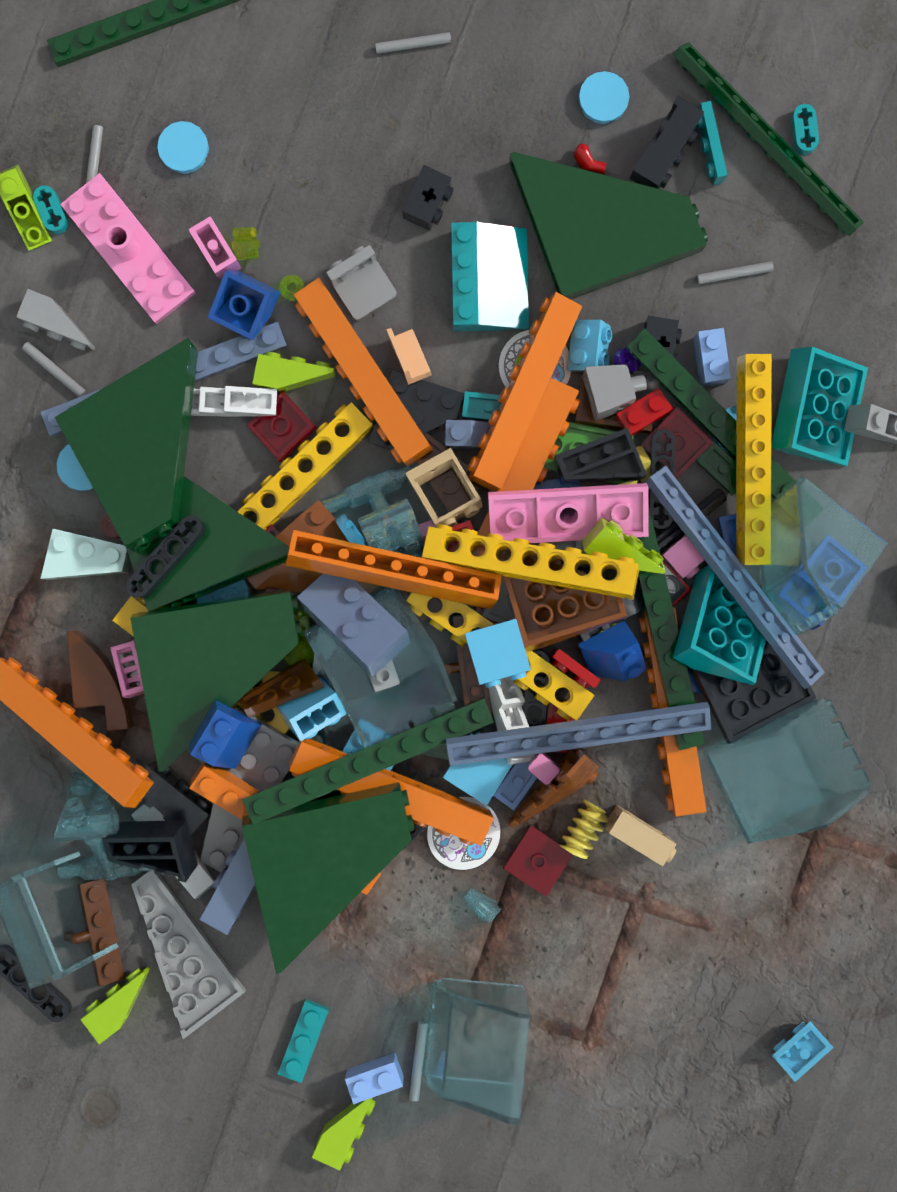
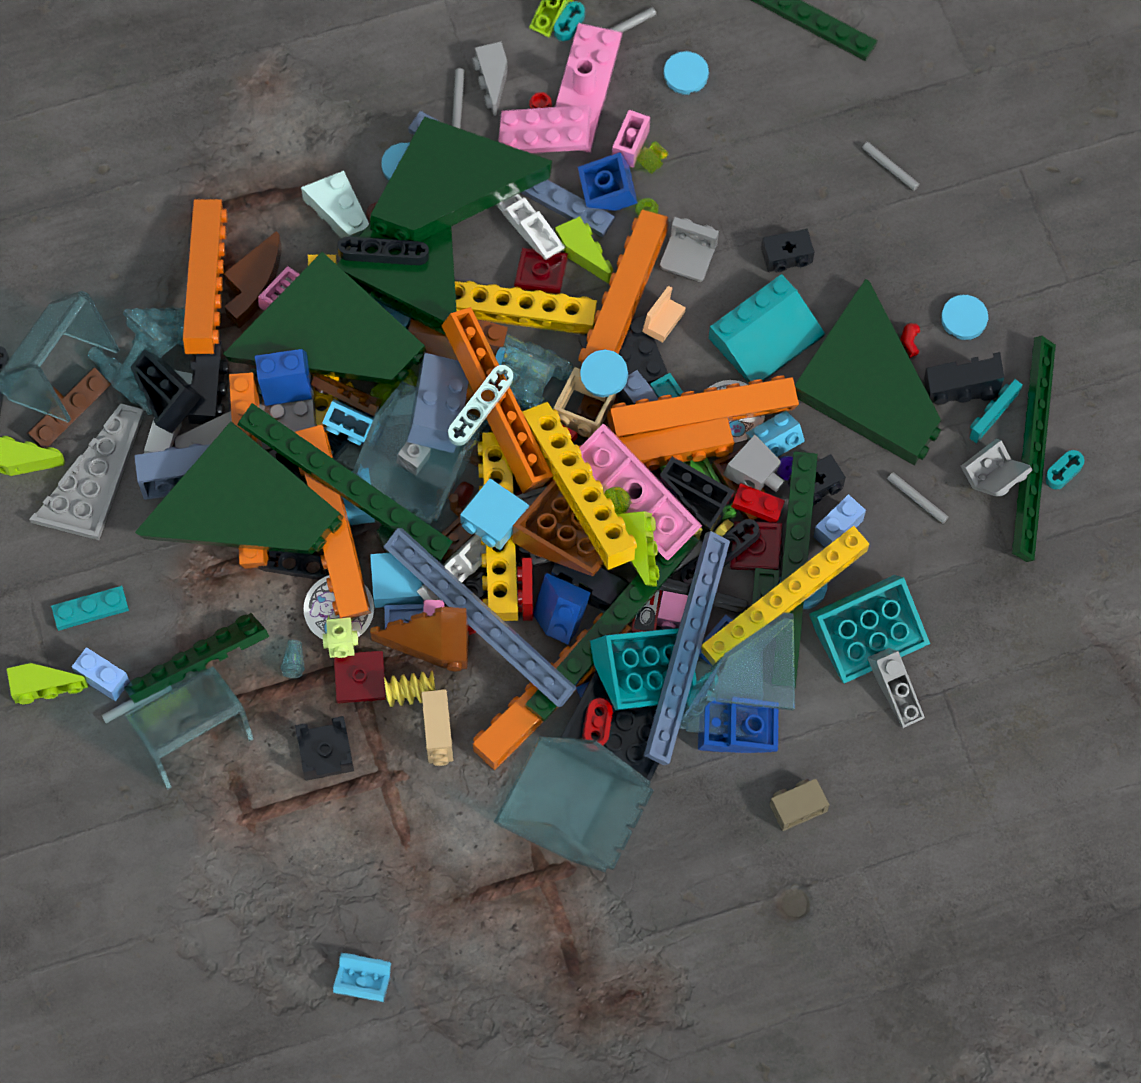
camera: 50 degrees right, 20 degrees down
(115, 300) = (540, 100): none -> red plate
(147, 317) = (546, 129): none -> bright pink plate
(399, 592) = (482, 406): none -> light aqua beam
(428, 941) = (242, 633): none -> dark green wing
(435, 454) = (604, 373): none -> medium azure tile
(442, 651) = (464, 492): none -> clear red tile
(487, 856) = (340, 637): none -> yellowish green brick
(568, 536) = (620, 499): none -> clear neon green piece
(582, 938) = (324, 749): none -> black panel
(742, 703) = (598, 724): none -> red plate
(770, 188) = (994, 470): none -> light grey bracket

